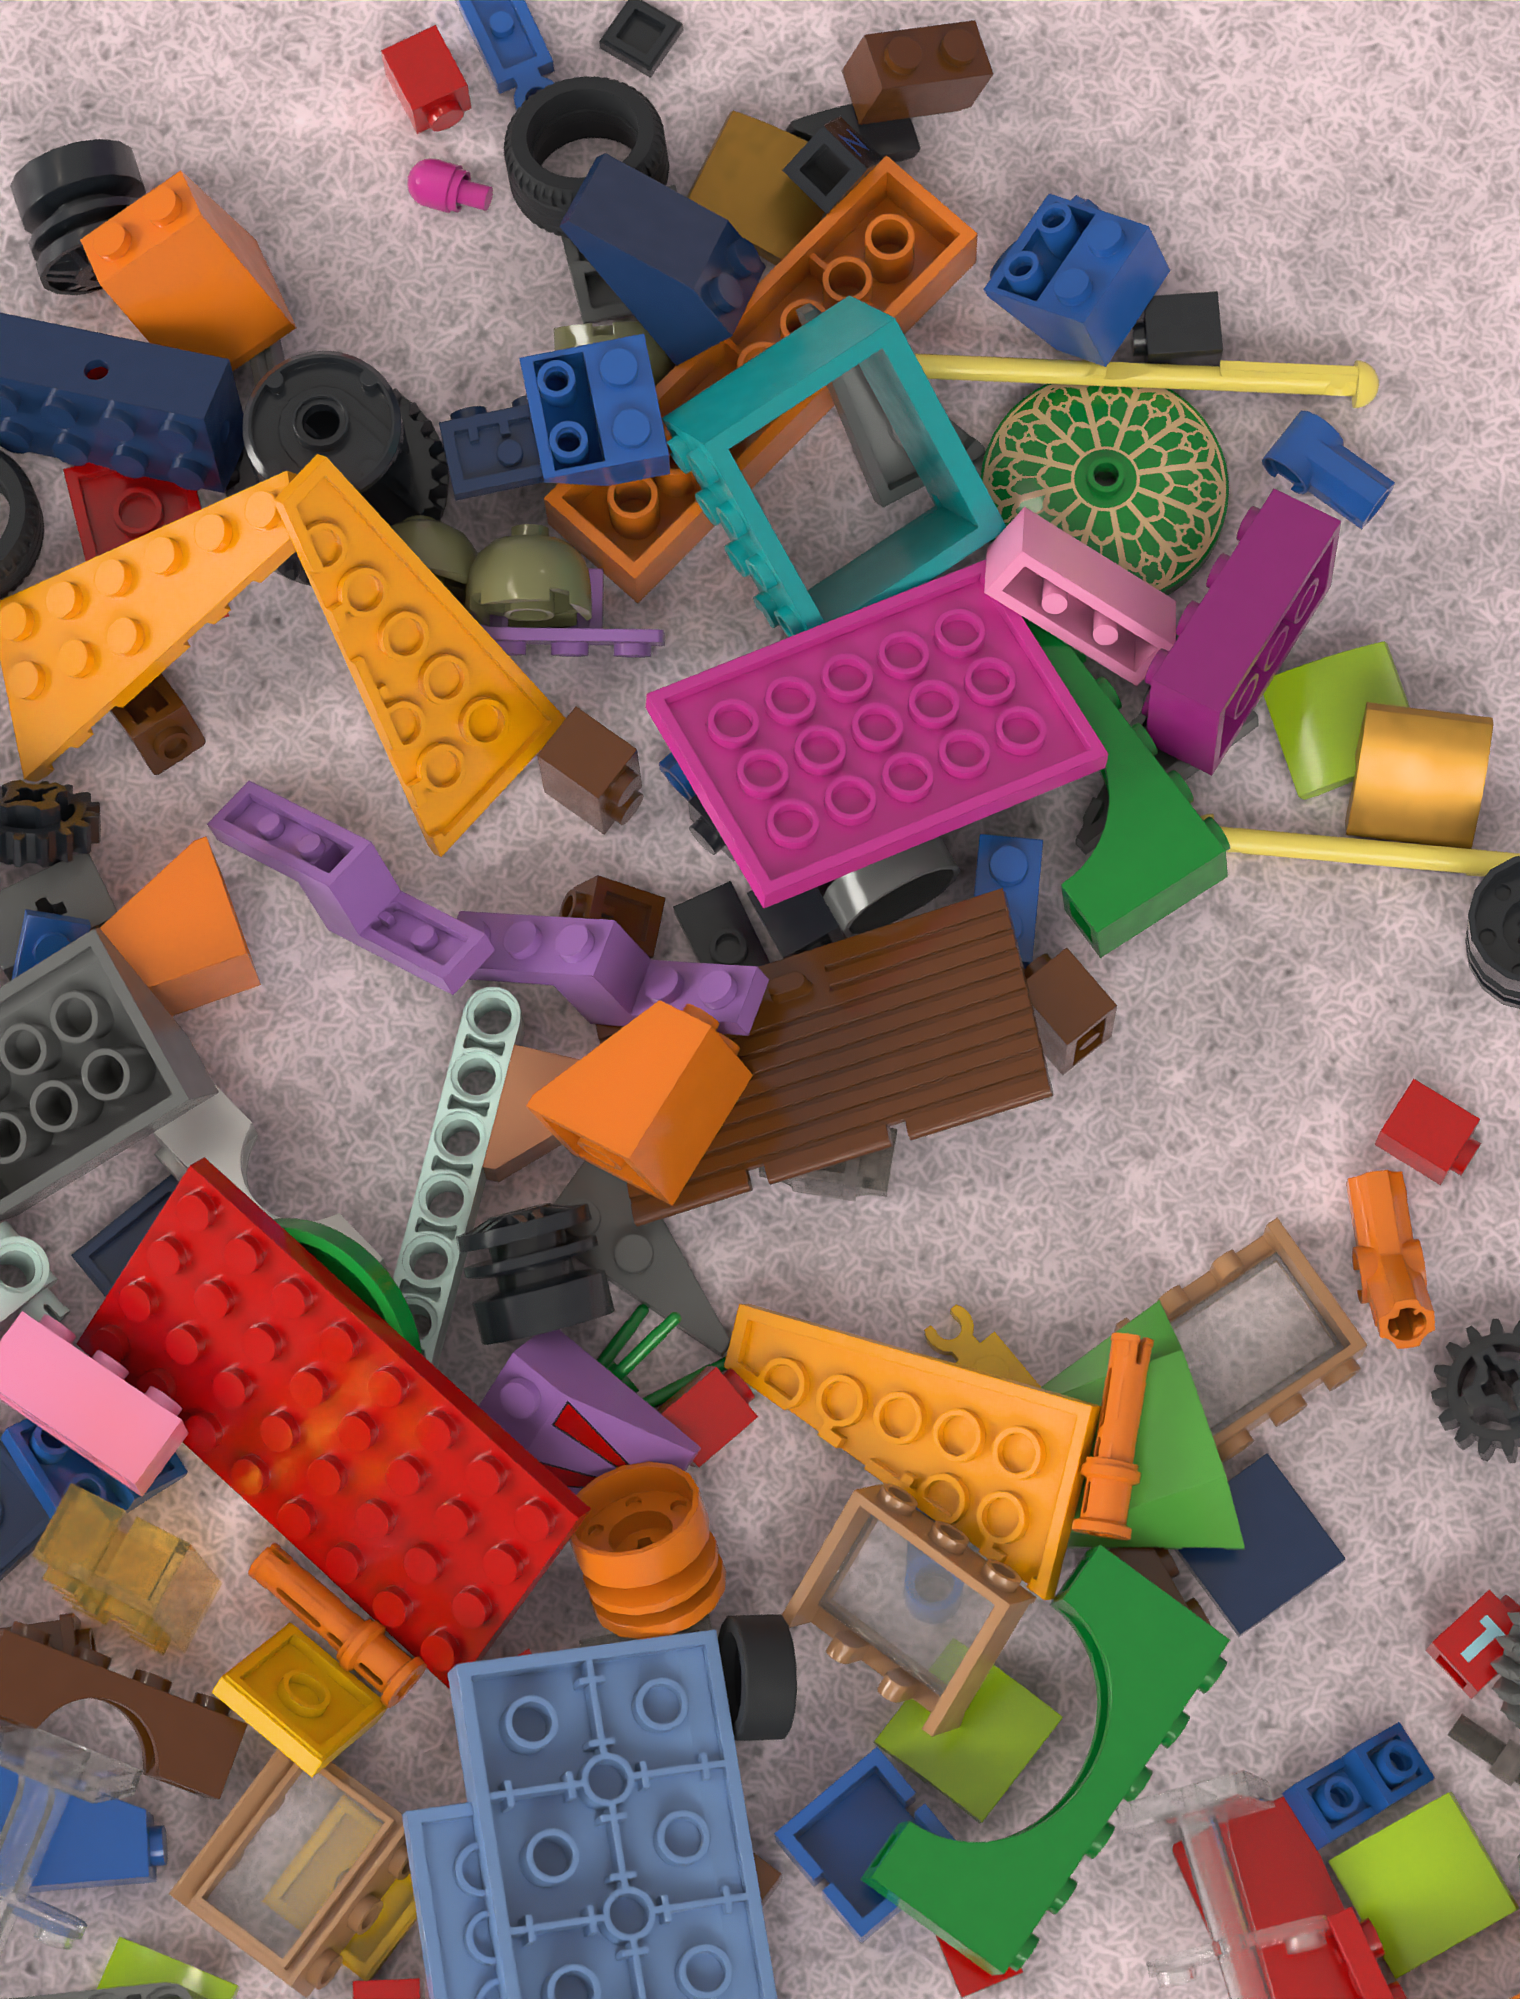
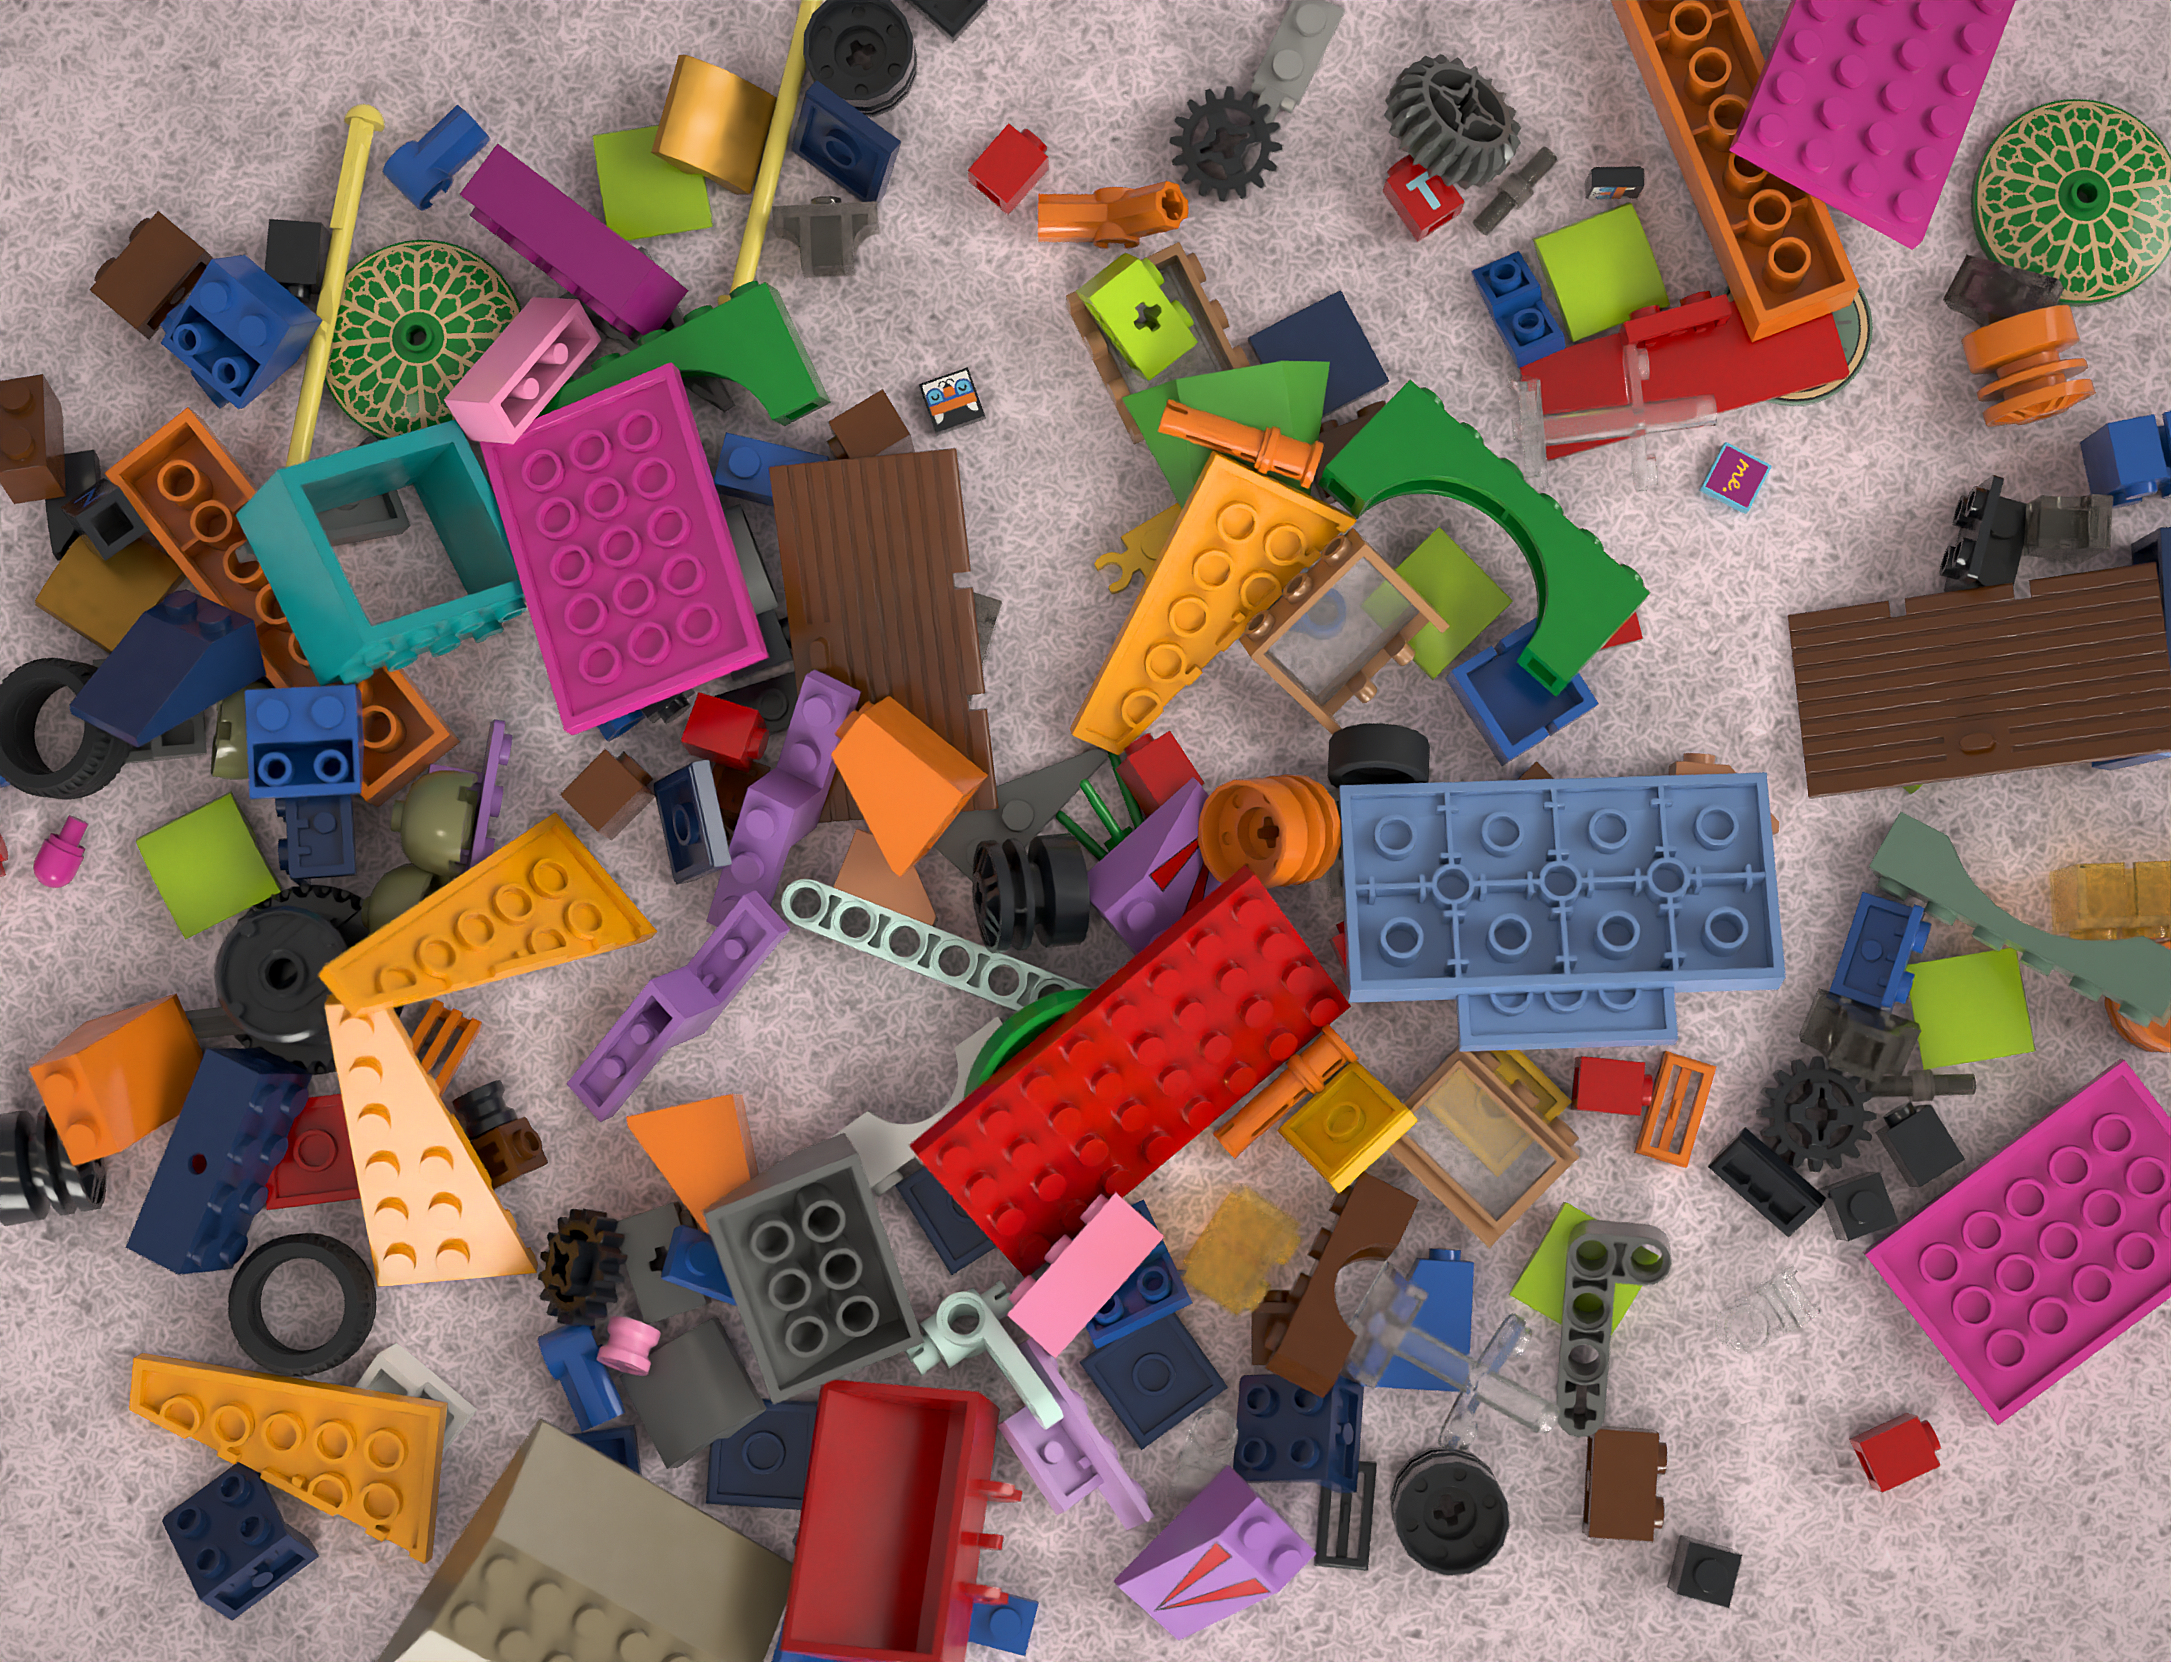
camera: 85 degrees left, 10 degrees up
(206, 691) = (484, 1109): none -> black wheel
(280, 606) = (453, 1020): none -> orange tile
(453, 345) = (208, 865): none -> lime slope
(570, 870) = (692, 822): none -> dark blue tile
(682, 893) = (725, 733): none -> red brick
(1131, 1108) = (952, 401): none -> tile
(1135, 175) = (151, 274): none -> reddish brown brick
(1230, 1319) = (1112, 302): none -> lime brick
(1310, 930) = (827, 233): none -> clear smoke brick
(1418, 930) = (845, 144): none -> dark blue tile

